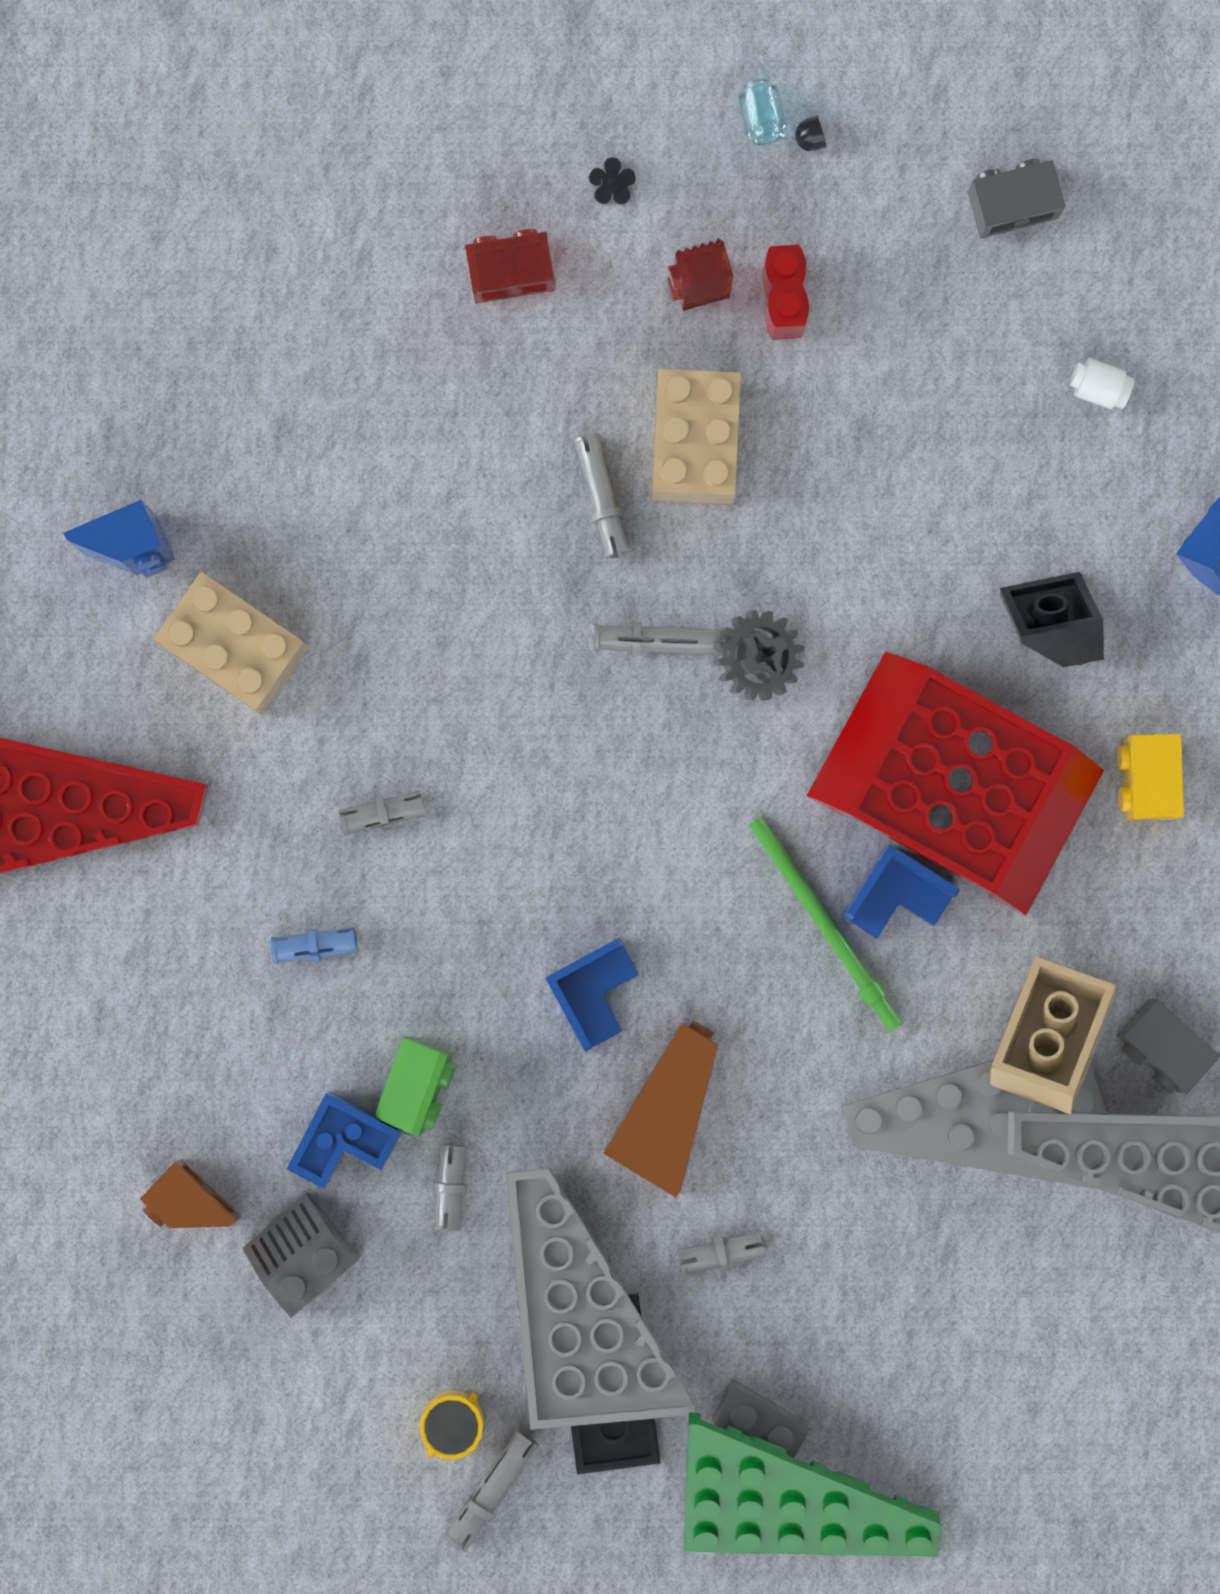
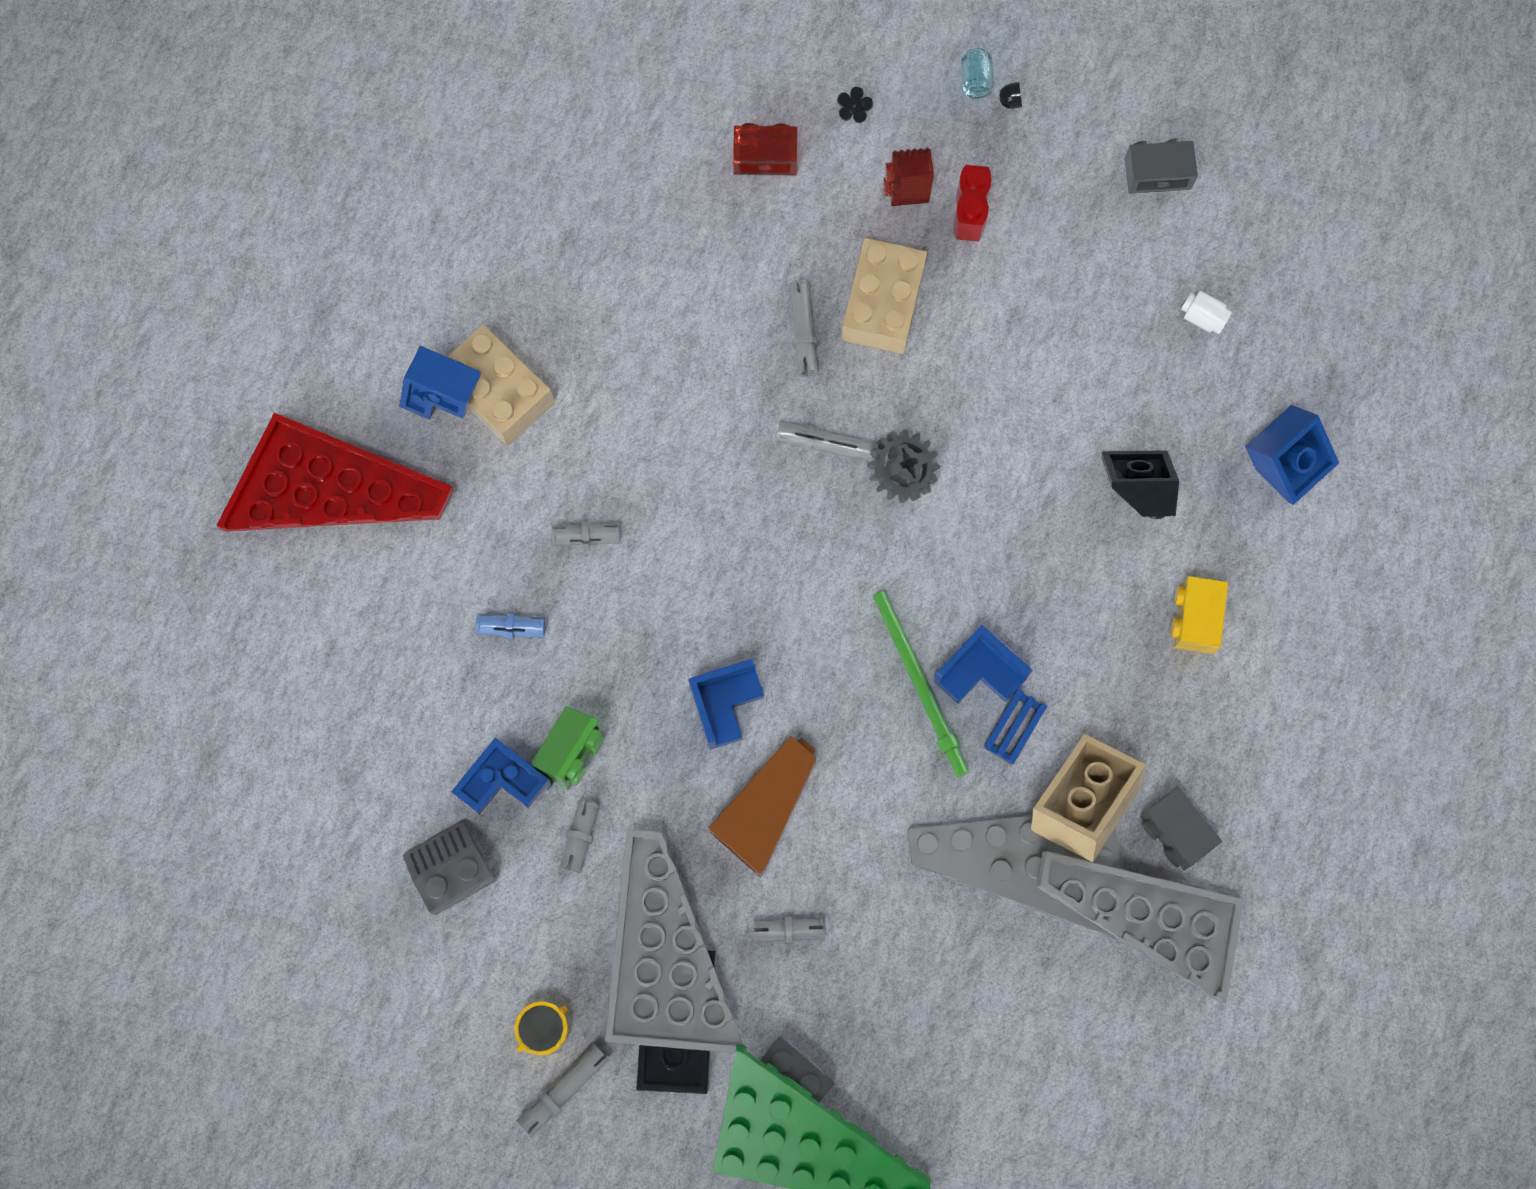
camera: 10 degrees right, 10 degrees down
(125, 539) = (428, 292): blue slope -> none
(162, 659) = (438, 383): none -> blue panel
(186, 1201) = (365, 806): dark orange slope -> none
(897, 766) = (1078, 626): red slope -> none
(962, 923) = (1029, 703): none -> blue tile

